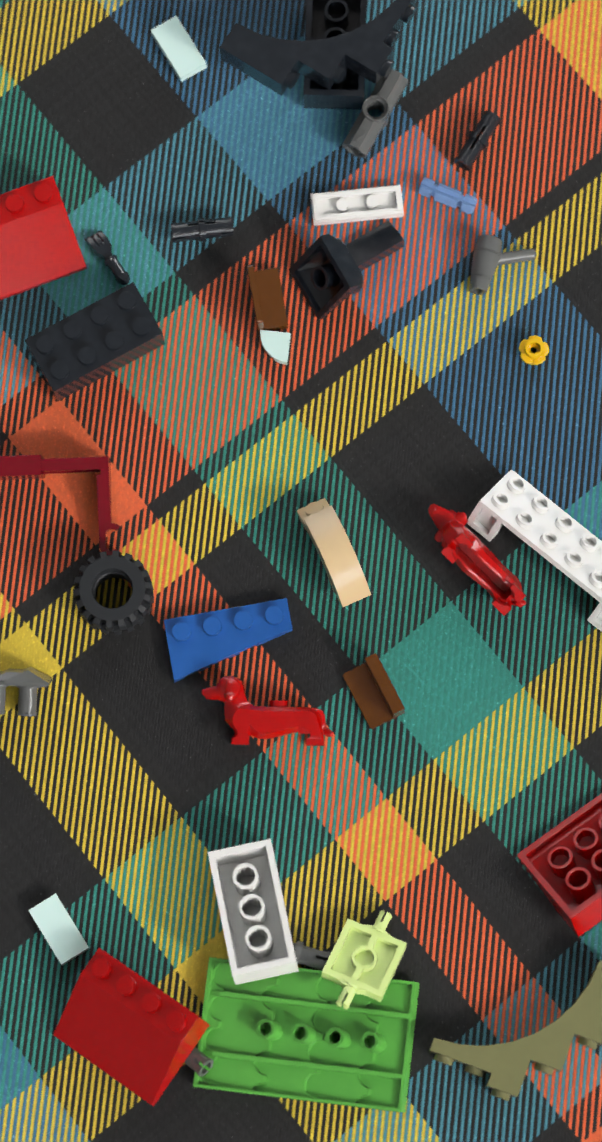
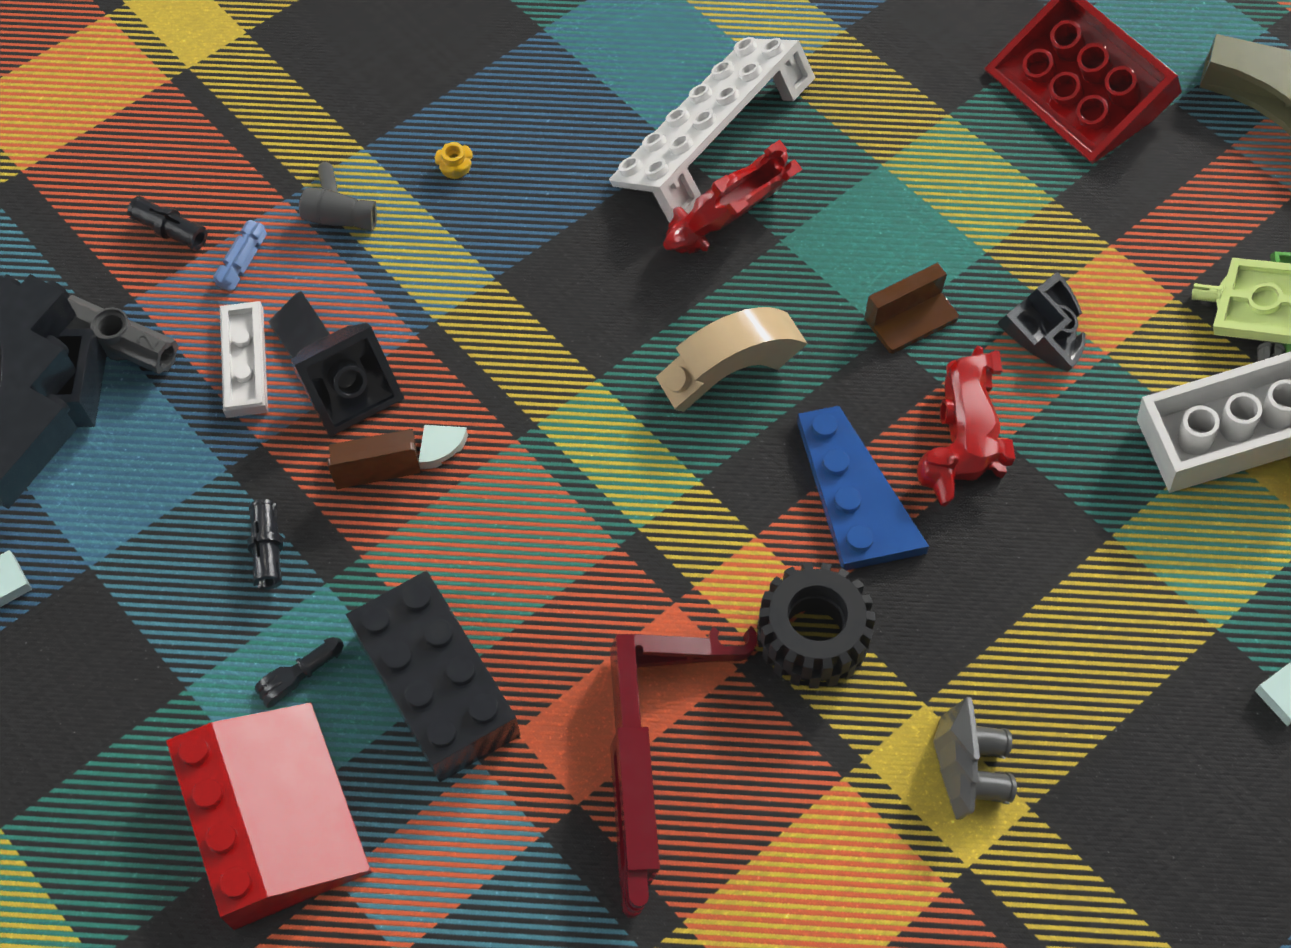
camera: 95 degrees left, 15 degrees down
(359, 795) = (1048, 324): none -> black brick

